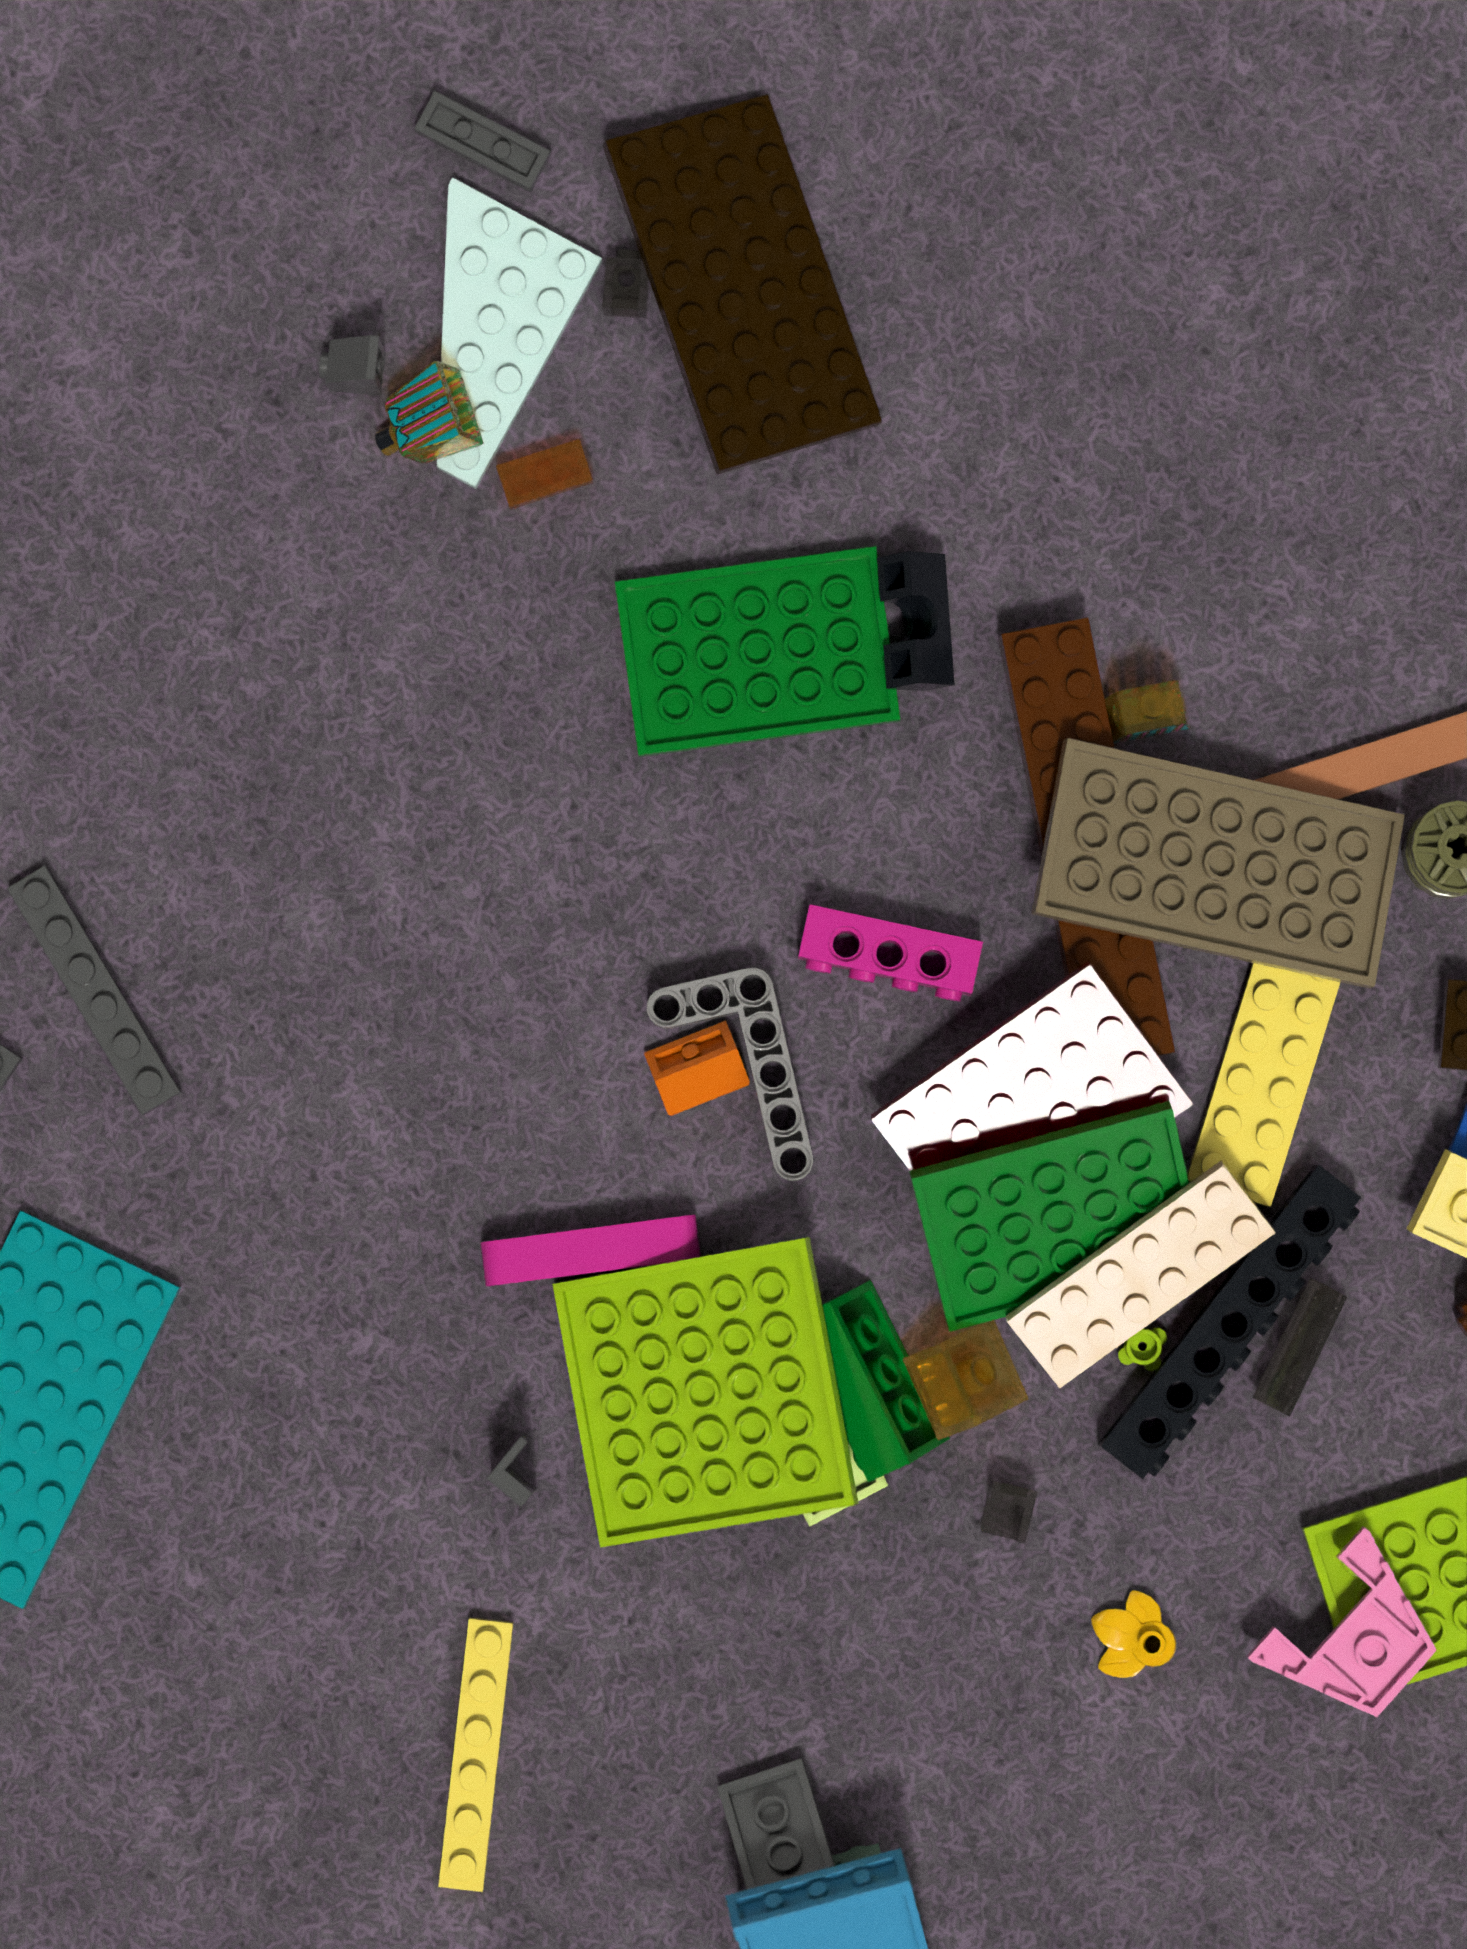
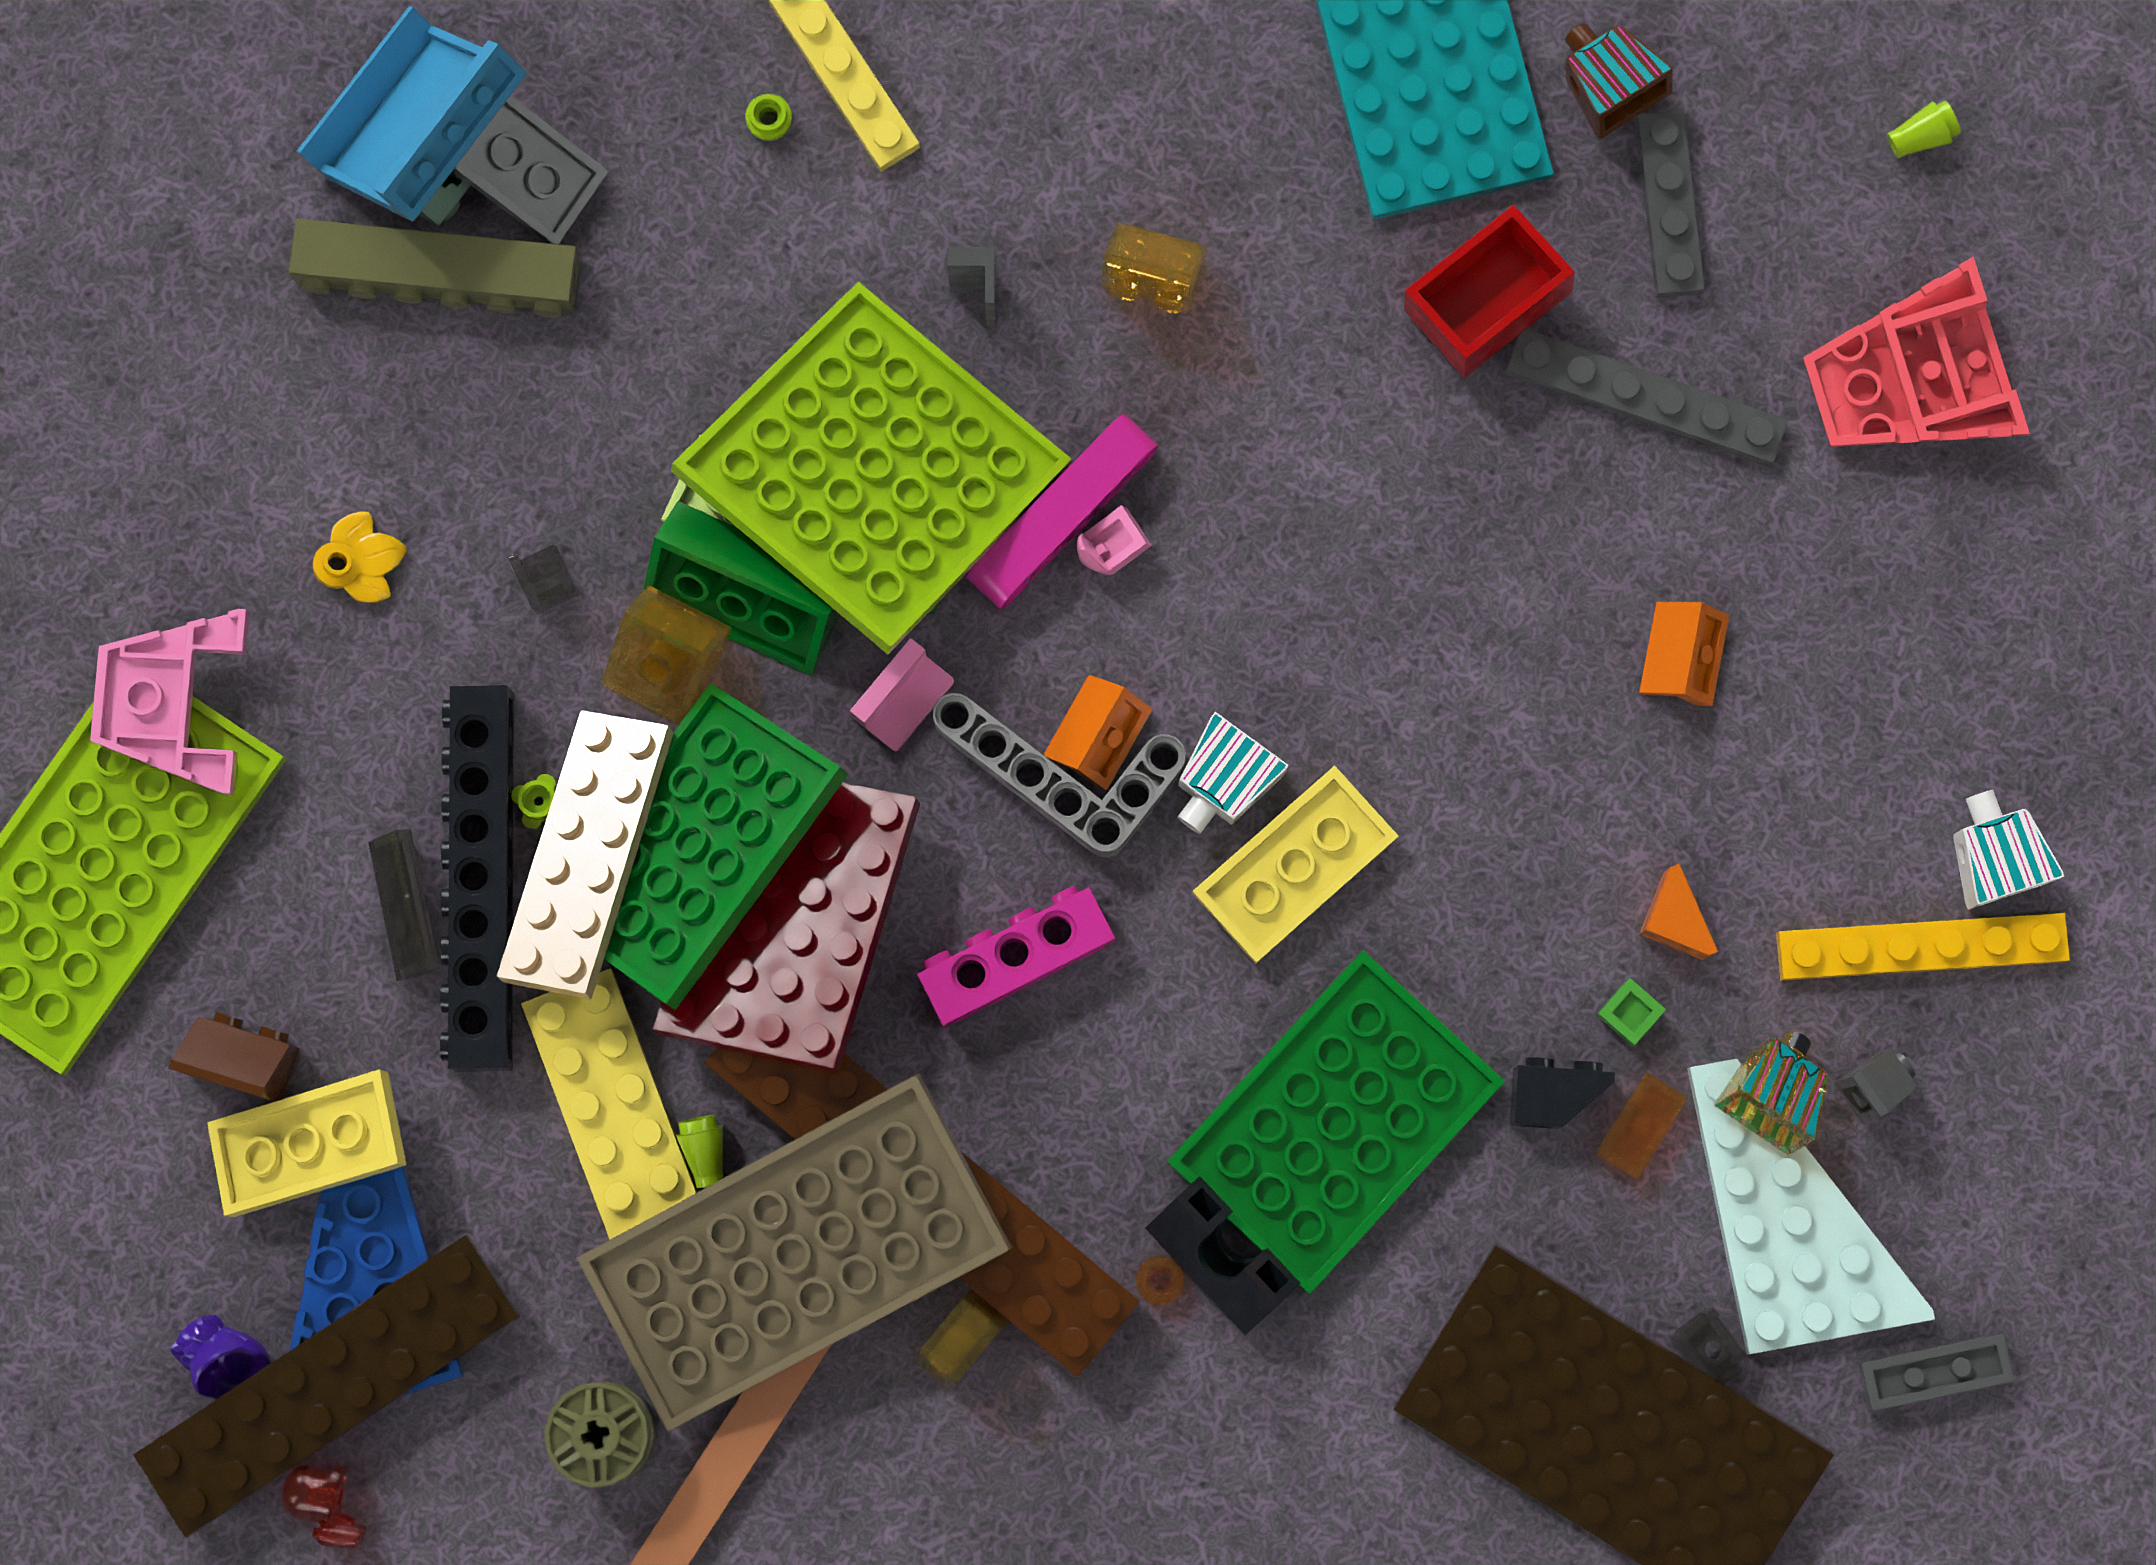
camera: 140 degrees right, 5 degrees down
(126, 454) = (2001, 853): none -> white torso
(145, 1157) = (1489, 291): none -> red piece
(227, 781) = (1684, 652): none -> orange panel
(237, 437) = (1922, 946): none -> yellow plate
(374, 1378) = (1153, 267): none -> clear yellow slope
(395, 599) = (1676, 918): none -> orange slope
(484, 558) = (1631, 1012): none -> bright green plate
(556, 1744) = (768, 103): none -> lime plate
(573, 1197) = (1112, 542): none -> bright pink plate
(588, 543) = (1552, 1095): none -> black slope
(632, 959) = (1226, 775): none -> torso
(634, 856) = (1295, 864): none -> light yellow plate
(817, 1207) = (902, 696): none -> bright pink panel
(904, 1816) = (434, 267): none -> olive brick
(976, 629) = (1175, 1275): none -> clear orange plate
(1221, 997) = (703, 1148): none -> lime cone

